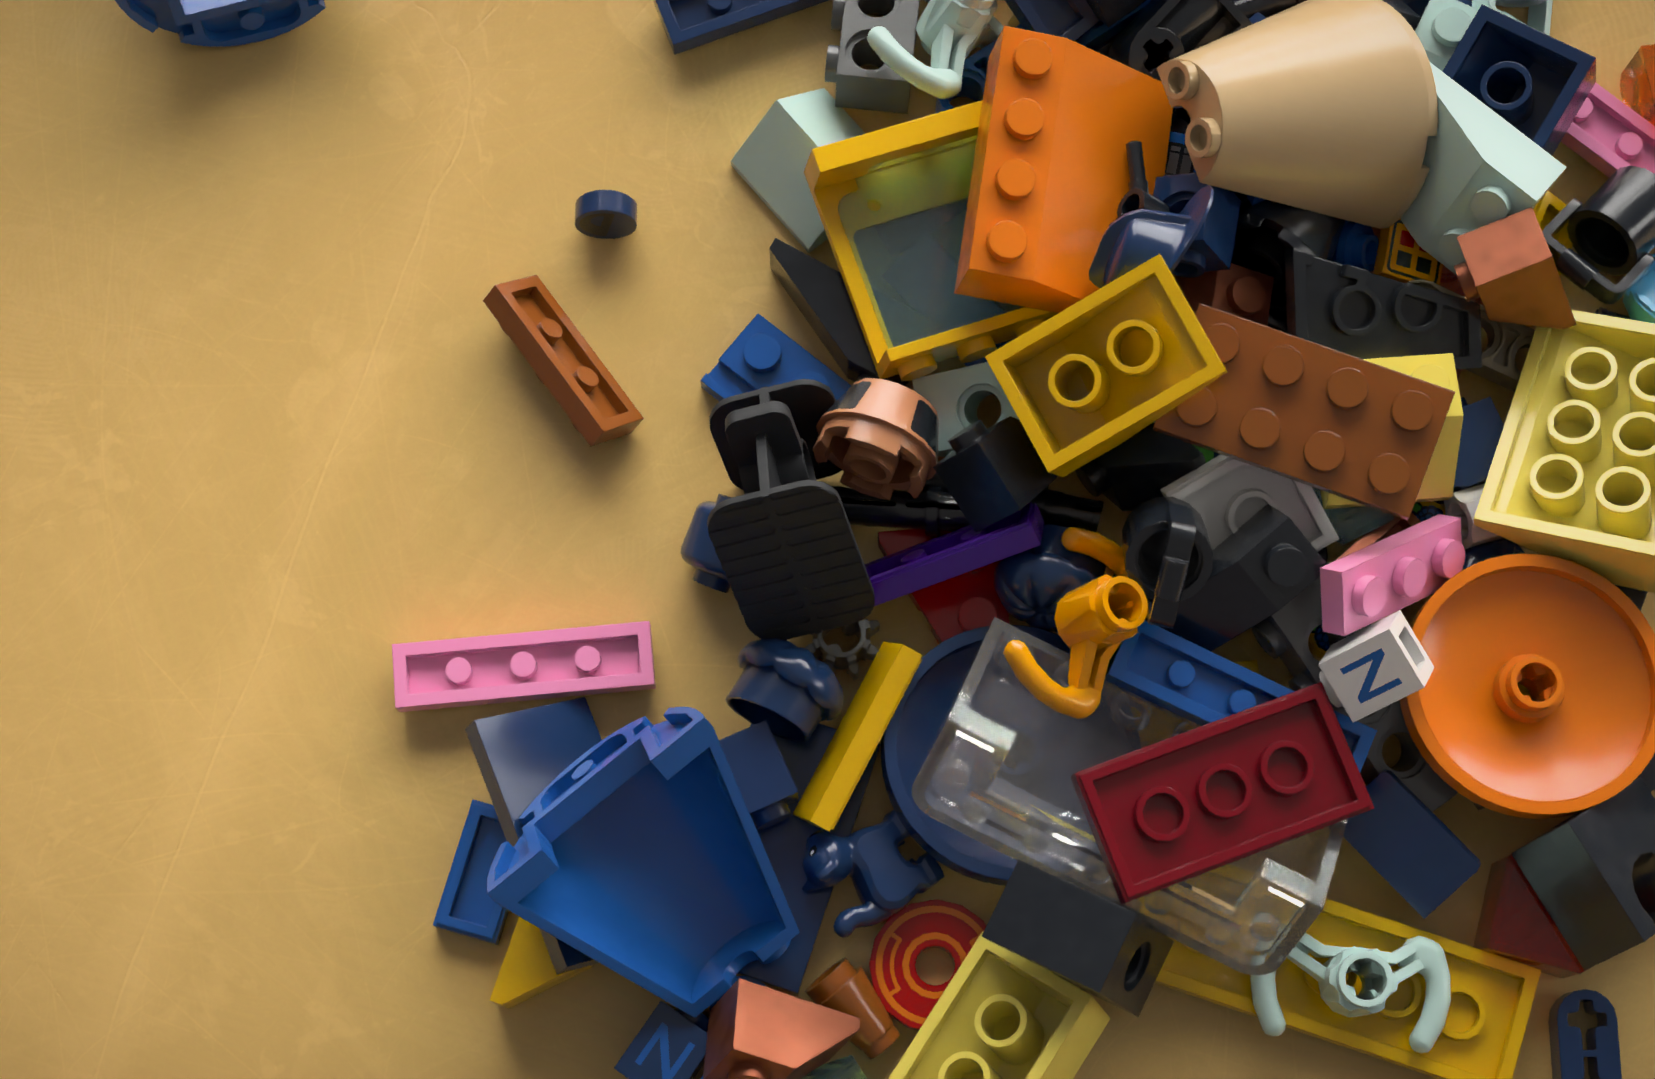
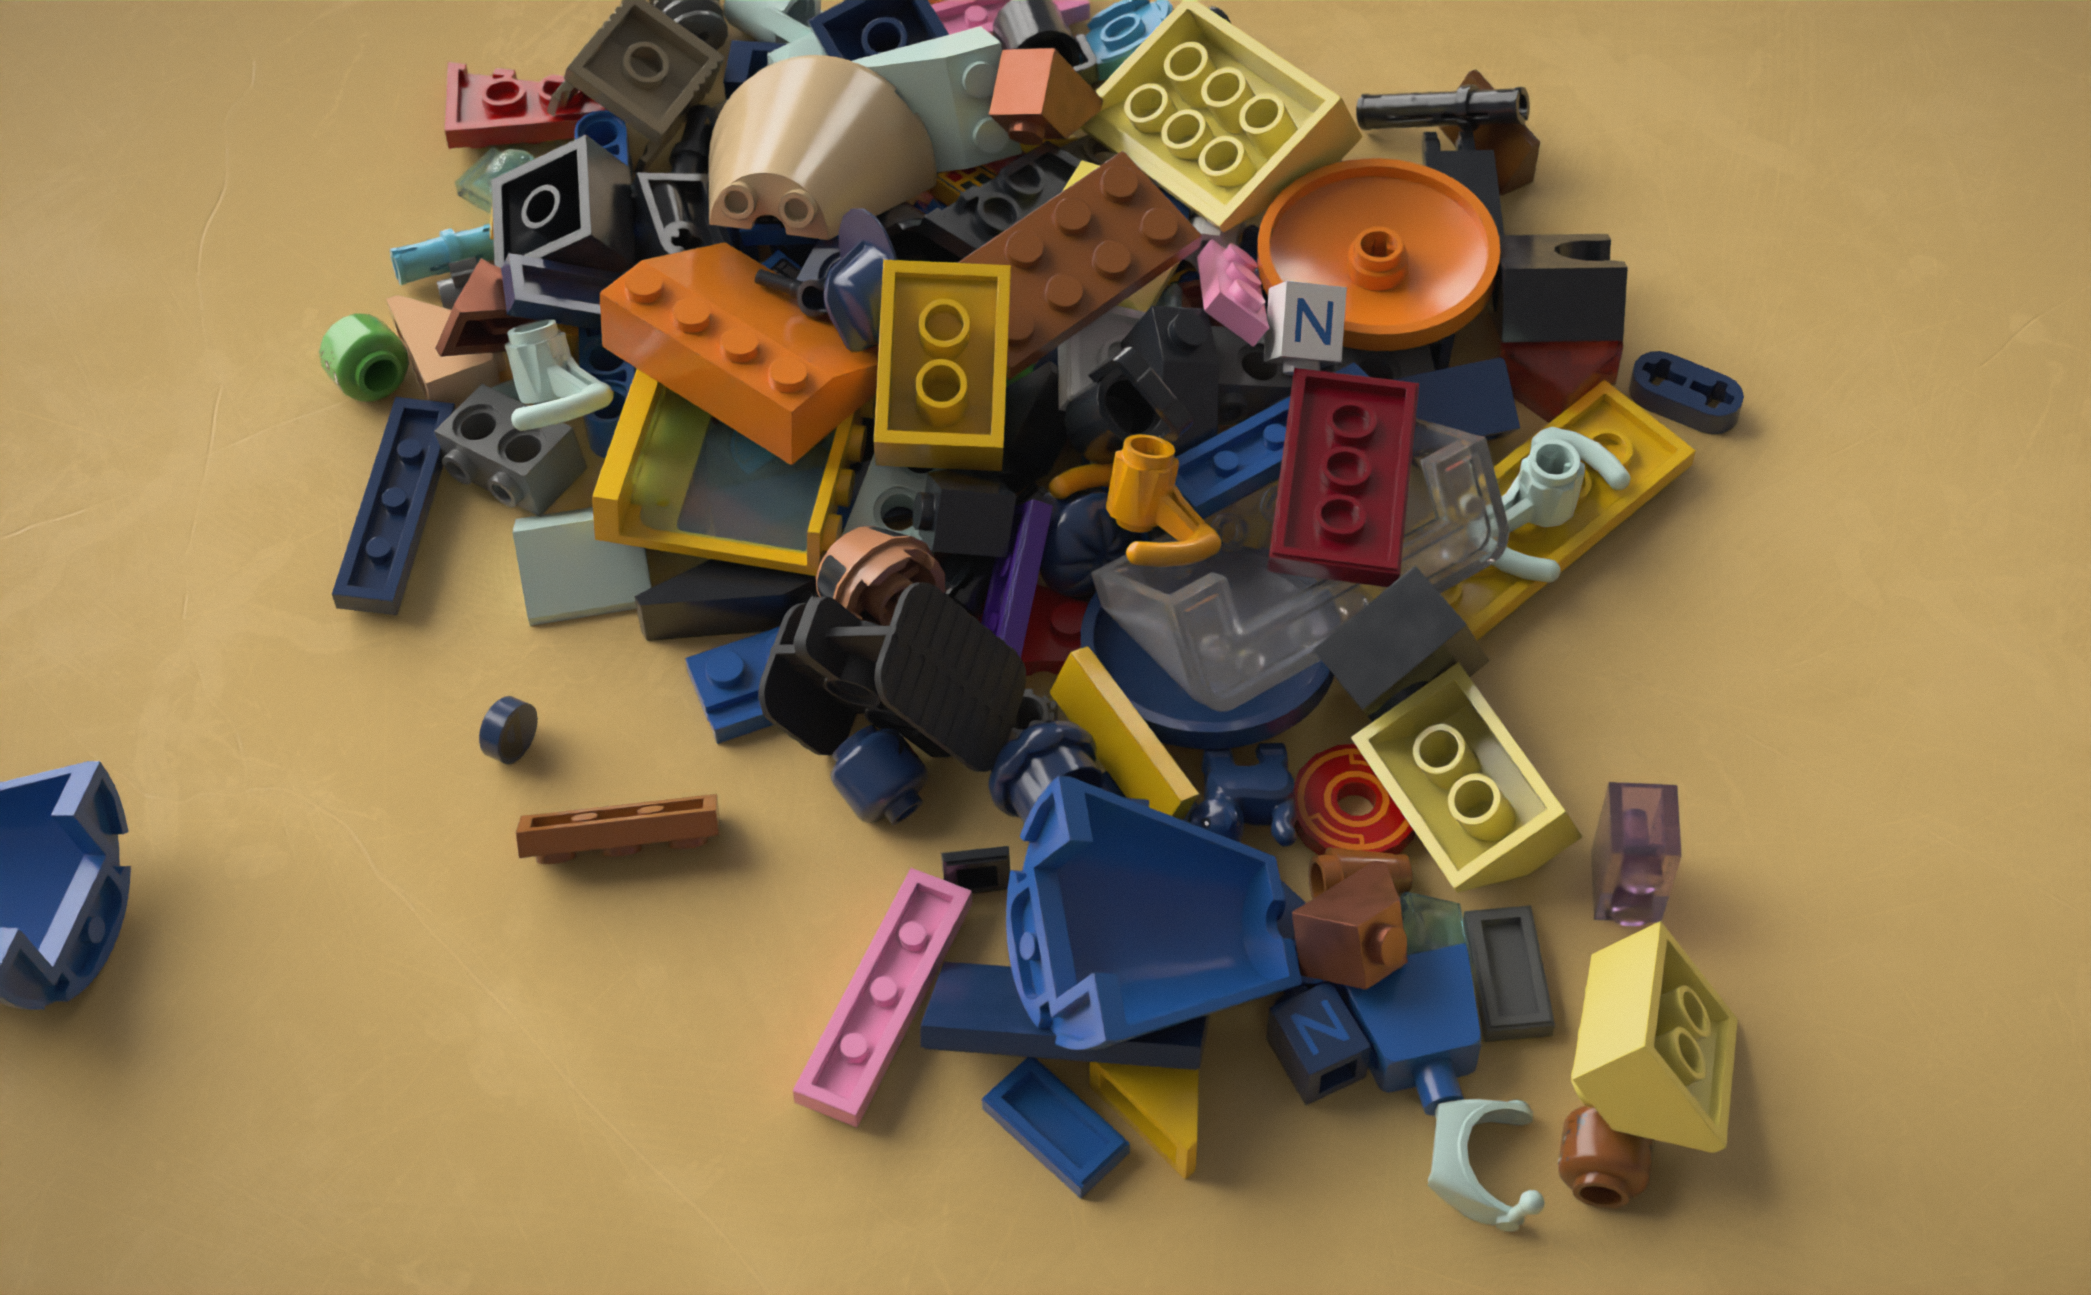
camera: 60 degrees left, 20 degrees down
(681, 664) = (977, 868): none -> black slope

